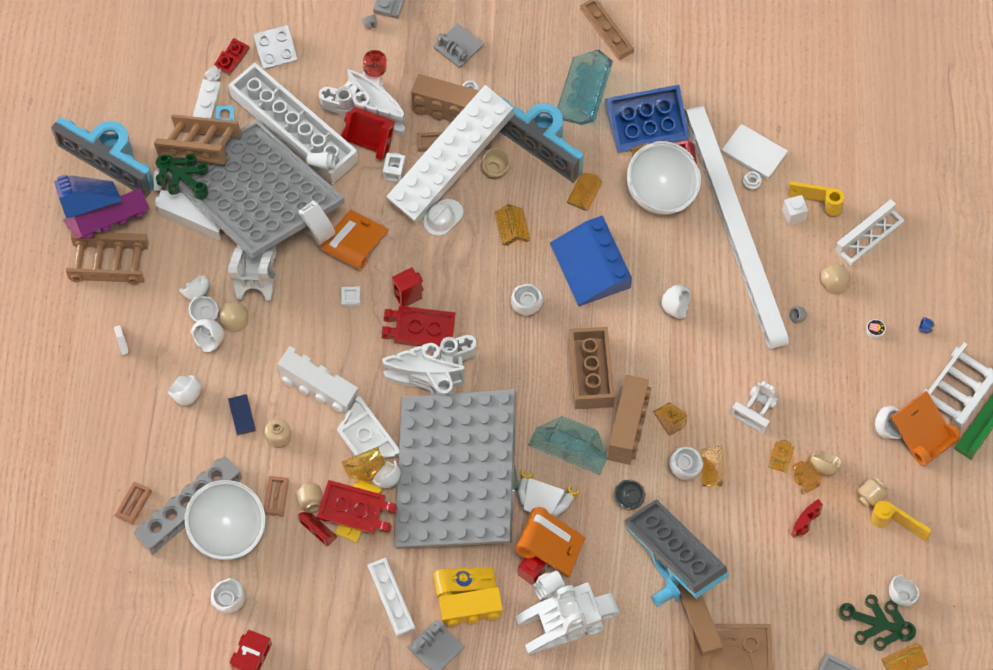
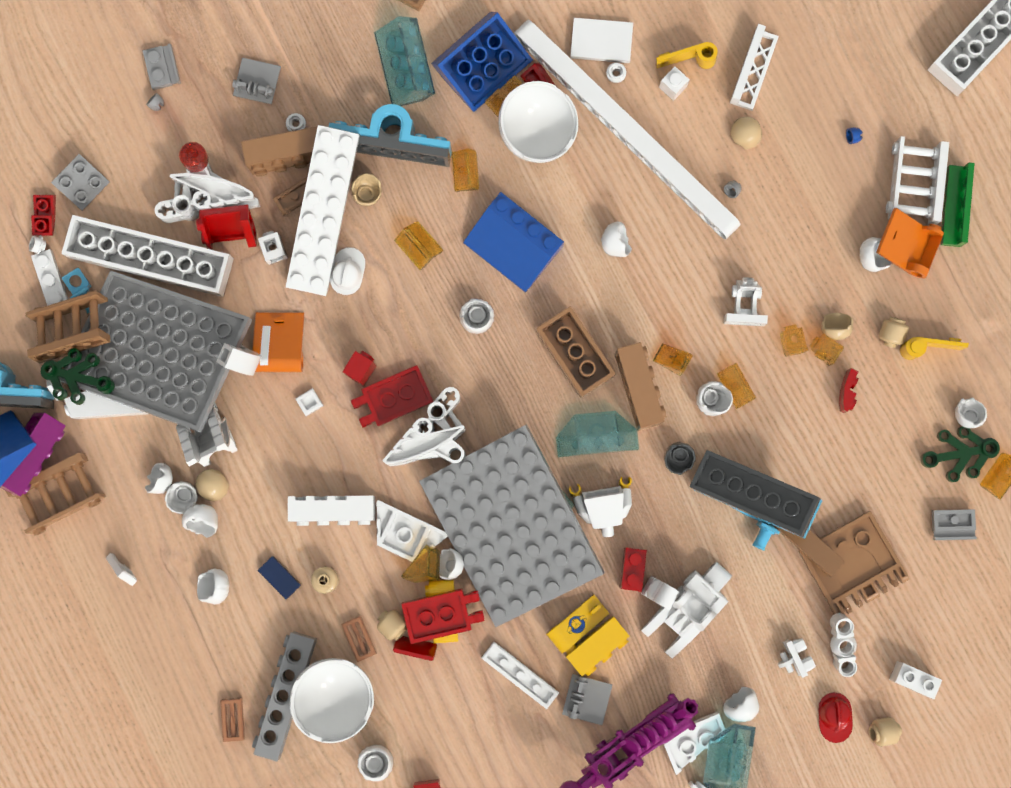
camera: 25 degrees left, 20 degrees up
(322, 160) = (203, 285): white cone -> none
(550, 541) = (636, 549): orange door -> none
(875, 329) = (809, 163): tile -> none

